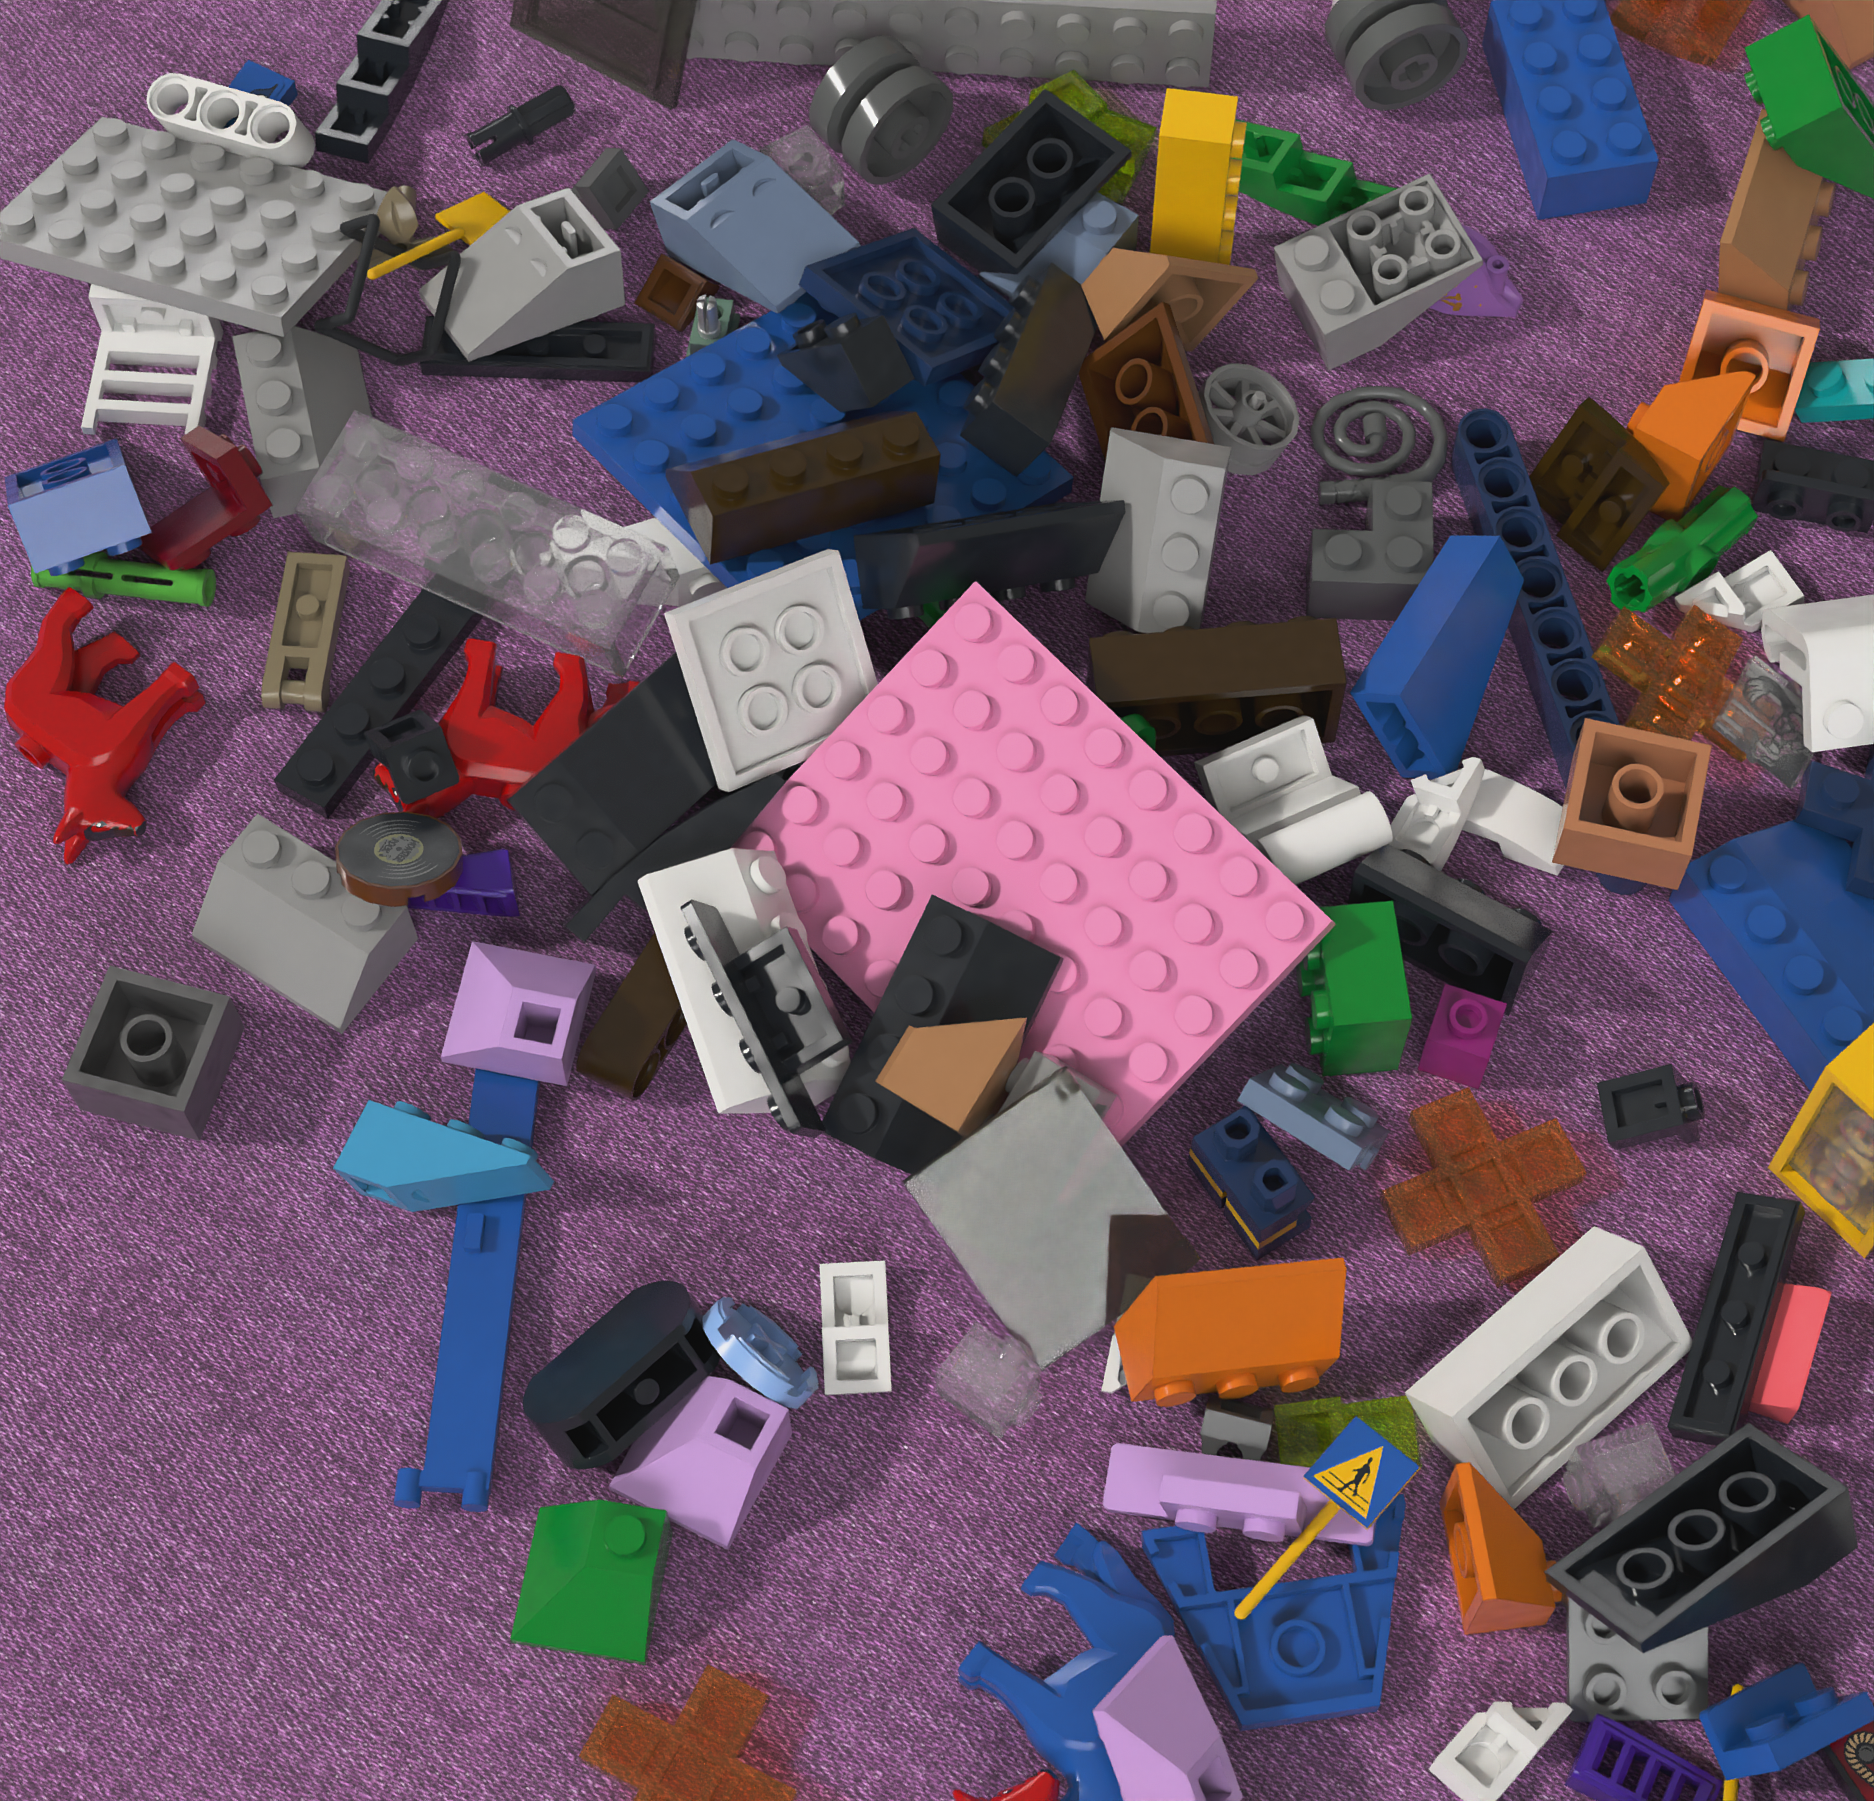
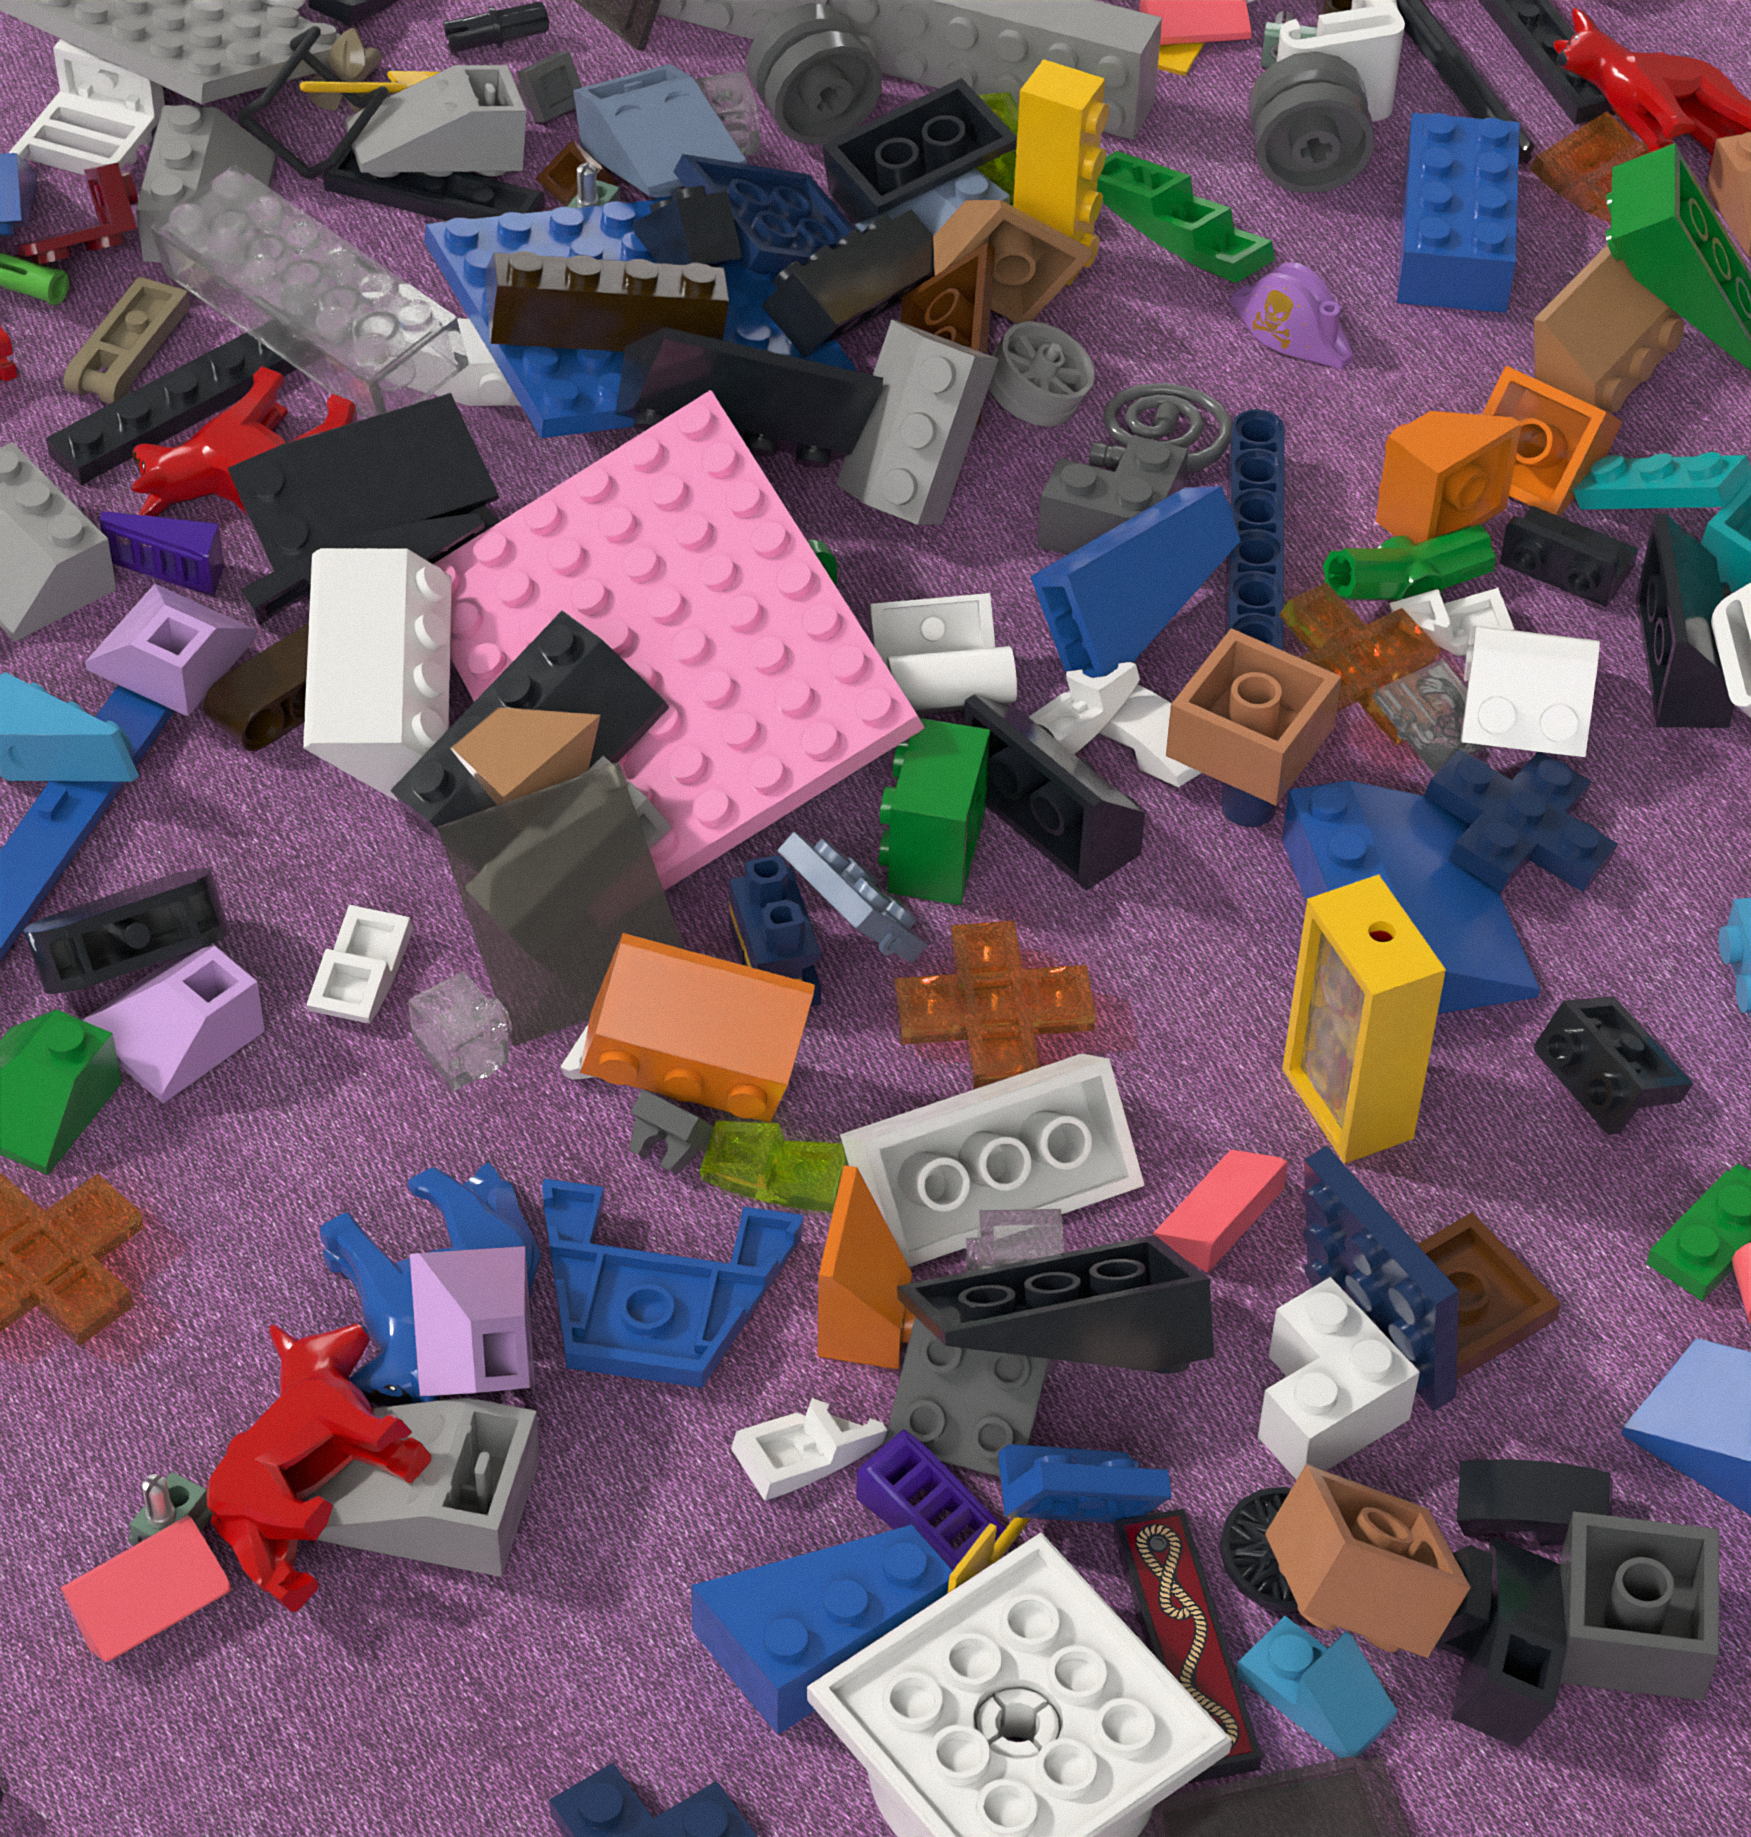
camera: 15 degrees right, 15 degrees down
(399, 858) = (116, 494): tile -> none
(414, 754) = (169, 437): black bracket -> none
(759, 1352) = (257, 944): light blue tile -> none
(772, 666) = (506, 421): white plate -> none
(778, 1008) = (384, 667): black bracket -> none
(1221, 1492) = (651, 1174): lavender bracket -> none
(1222, 682) = (922, 546): dark brown brick -> none
(1357, 1475) = (751, 1174): piece -> none
(1374, 269) = (1210, 287): light grey slope -> none
(1462, 1036) = (1026, 880): magenta brick -> none
(1597, 483) = (1344, 485): dark brown slope -> none
(1650, 1107) = (1184, 980): black bracket -> none
(1736, 1318) = (1196, 1161): black tile -> none

